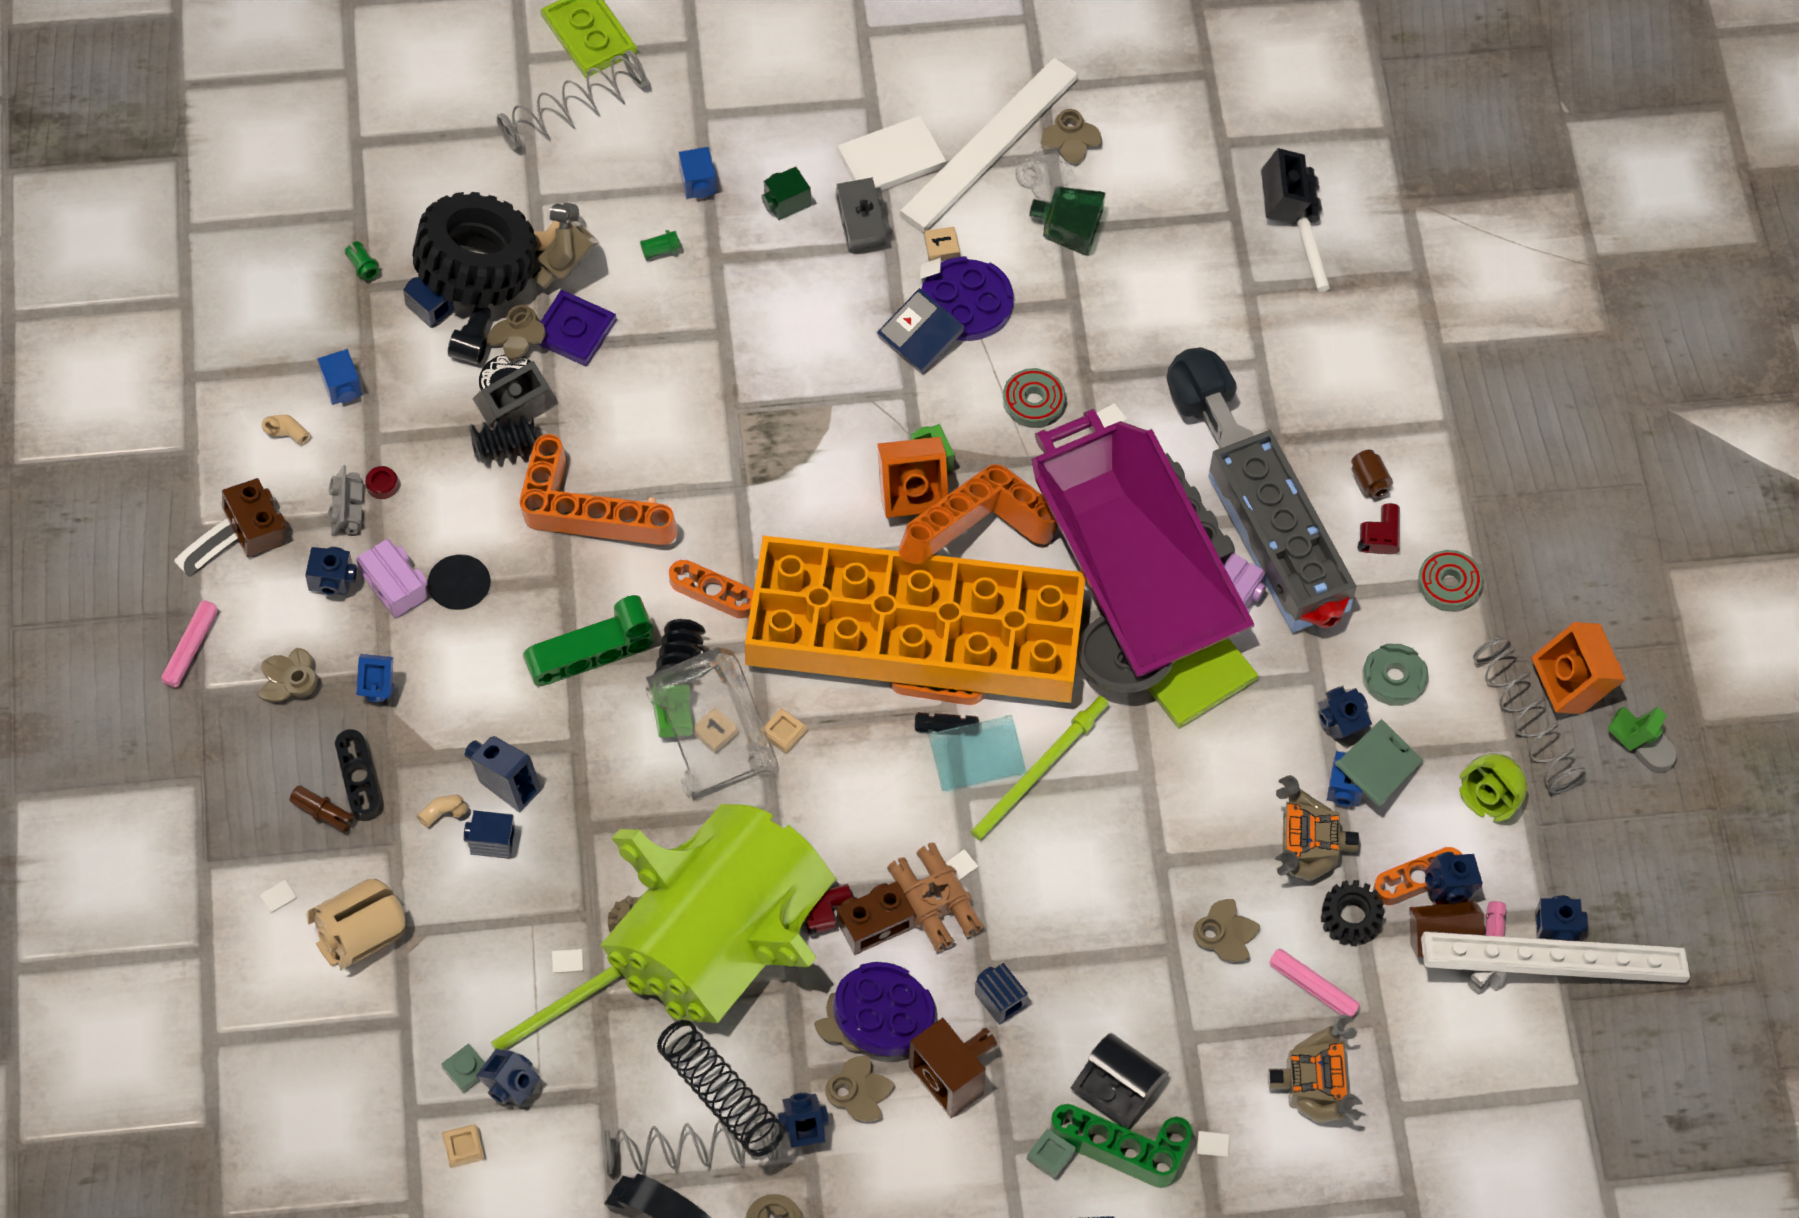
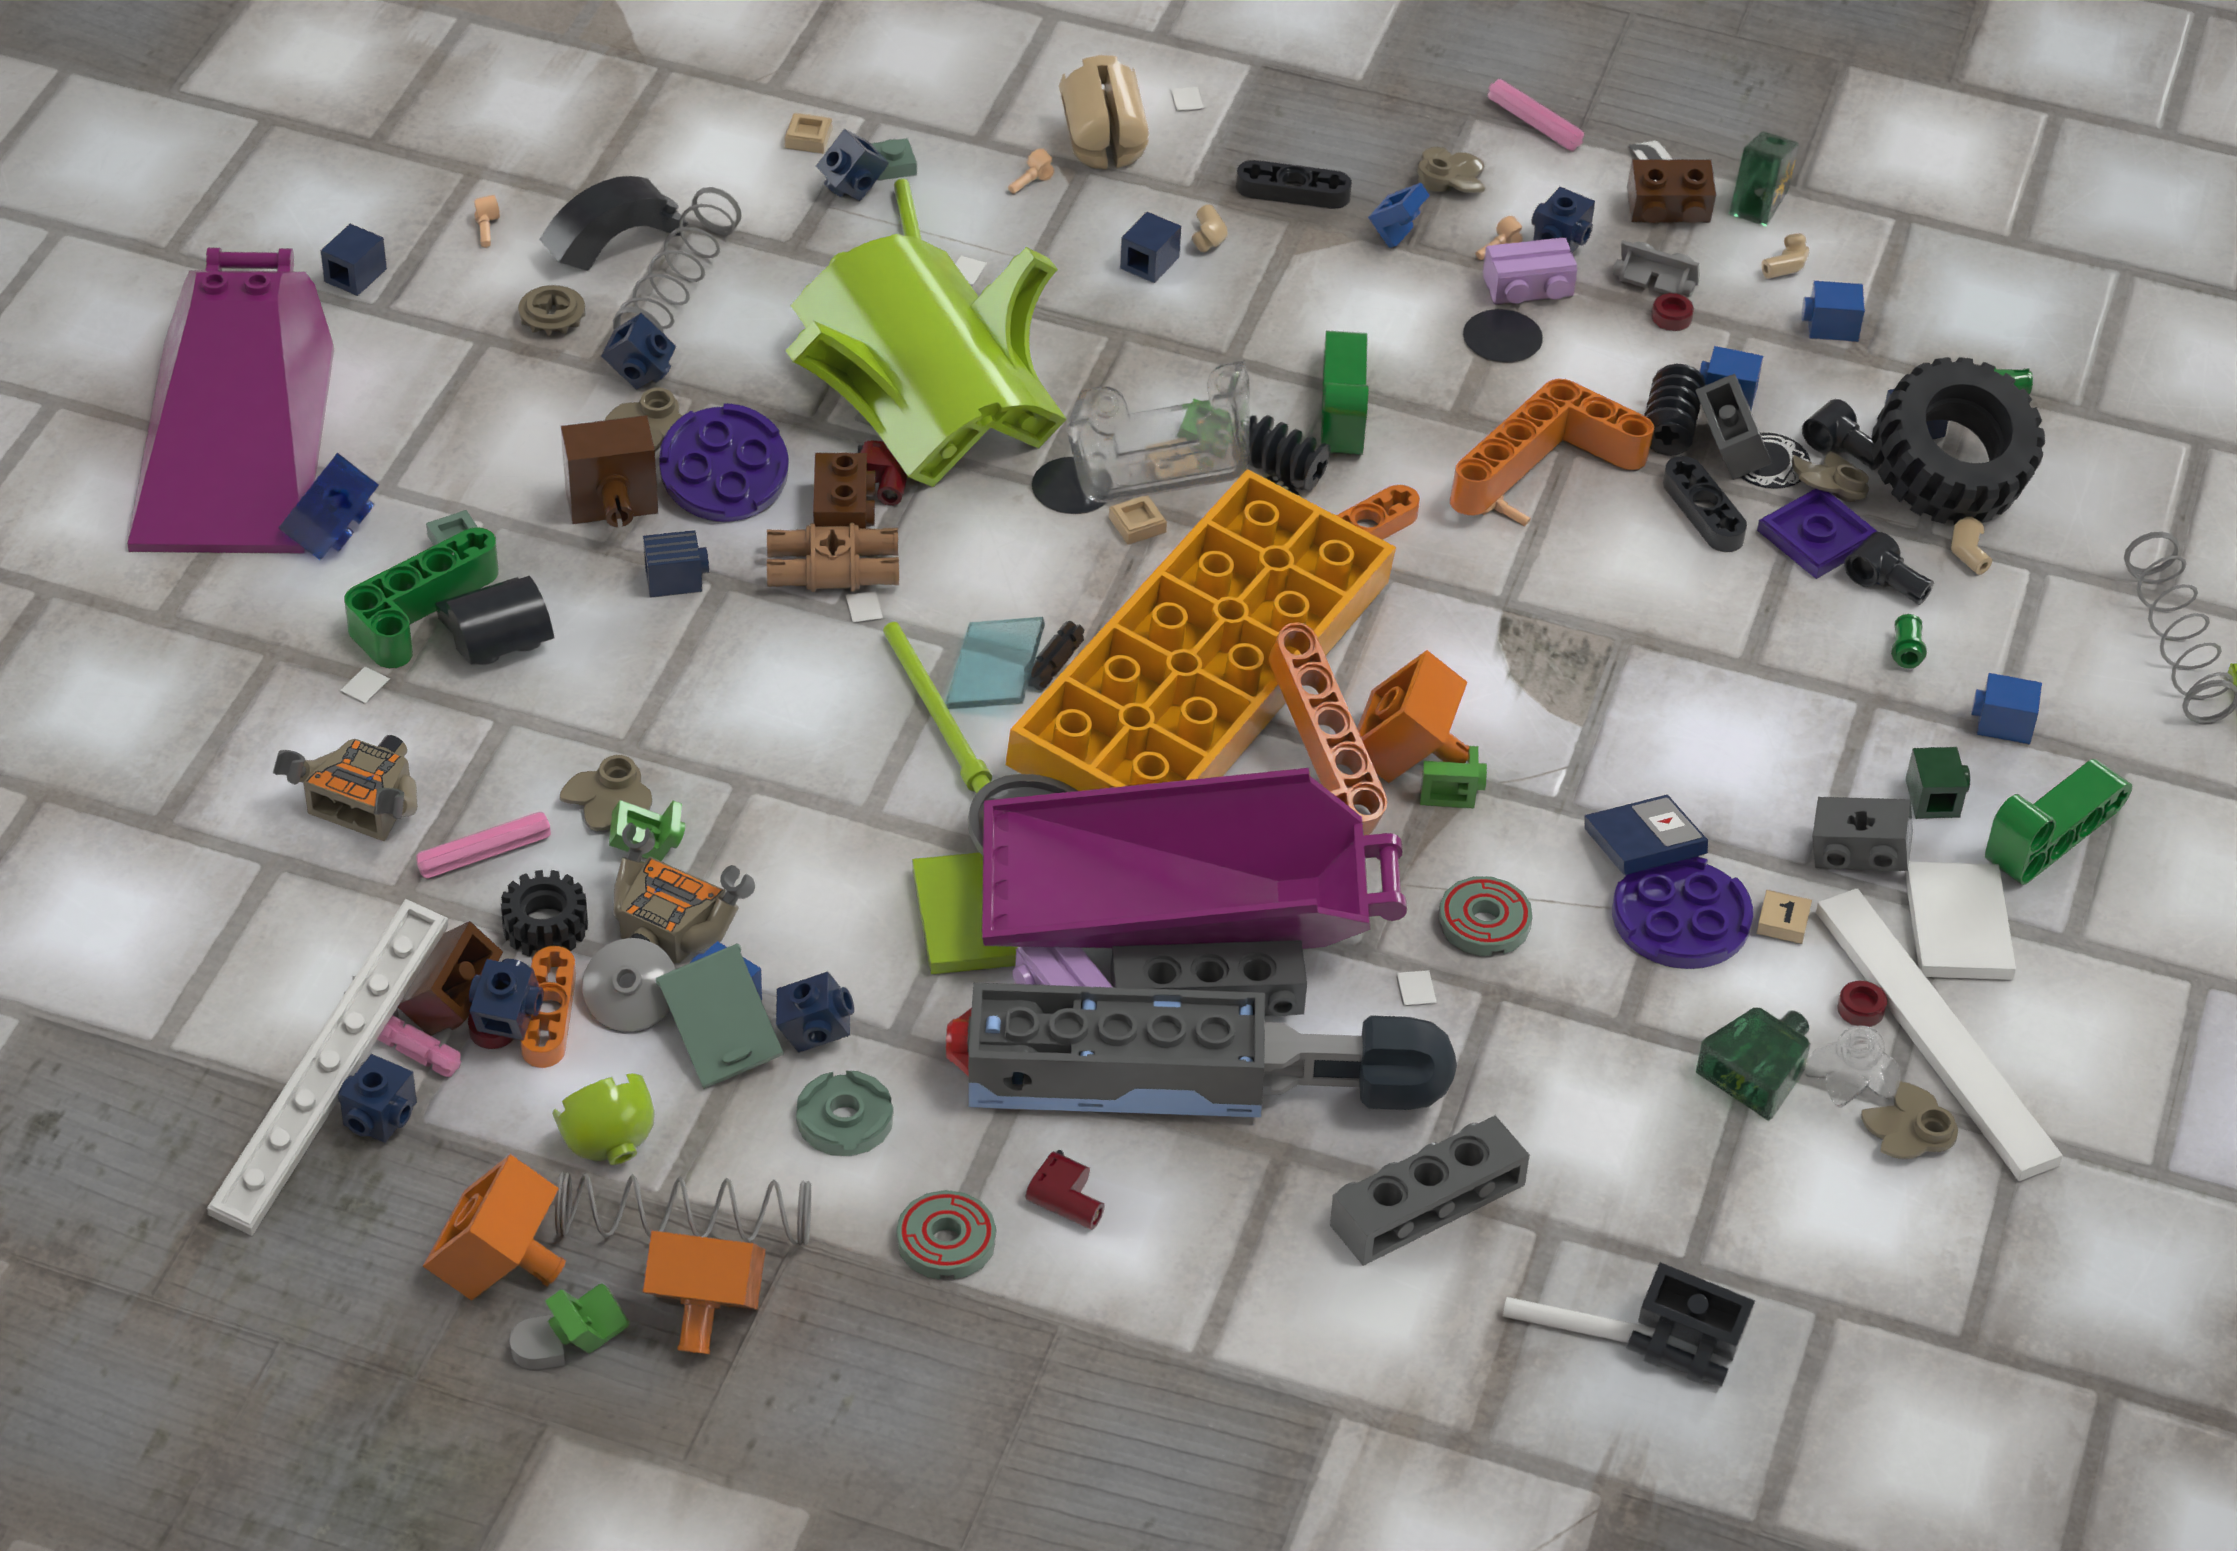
camera: 115 degrees right, 15 degrees down
(208, 458) = (1764, 164): none -> clear green torso
(321, 808) = (1267, 143): reddish brown axle -> none
(346, 609) = (1508, 232): none -> light nougat hand
(424, 955) = (1040, 168): none -> light nougat hand
(449, 416) = (1729, 361): none -> blue brick
(504, 771) = (1217, 269): dark blue torso -> none
(567, 249) = (1928, 533): dark tan torso -> none
(581, 412) = (1705, 520): none -> black beam
(596, 279) = (1880, 561): none -> black pin
(745, 1144) = (615, 277): black piece -> none
(772, 794) = (1059, 488): none -> black sticker
(786, 124) = (2035, 835): none -> green beam
(930, 268) = (1747, 885): white sticker -> none
(988, 186) = (1862, 1003): none -> dark red tile
(1249, 885) = (667, 828): none -> bright green bracket
(1264, 332) = (1428, 1189): none -> dark grey brick
(1371, 474) = (1158, 1210): reddish brown brick -> none
(1380, 832) = (631, 1007): none -> light grey dish
(1621, 795) = (495, 1231): none -> orange brick

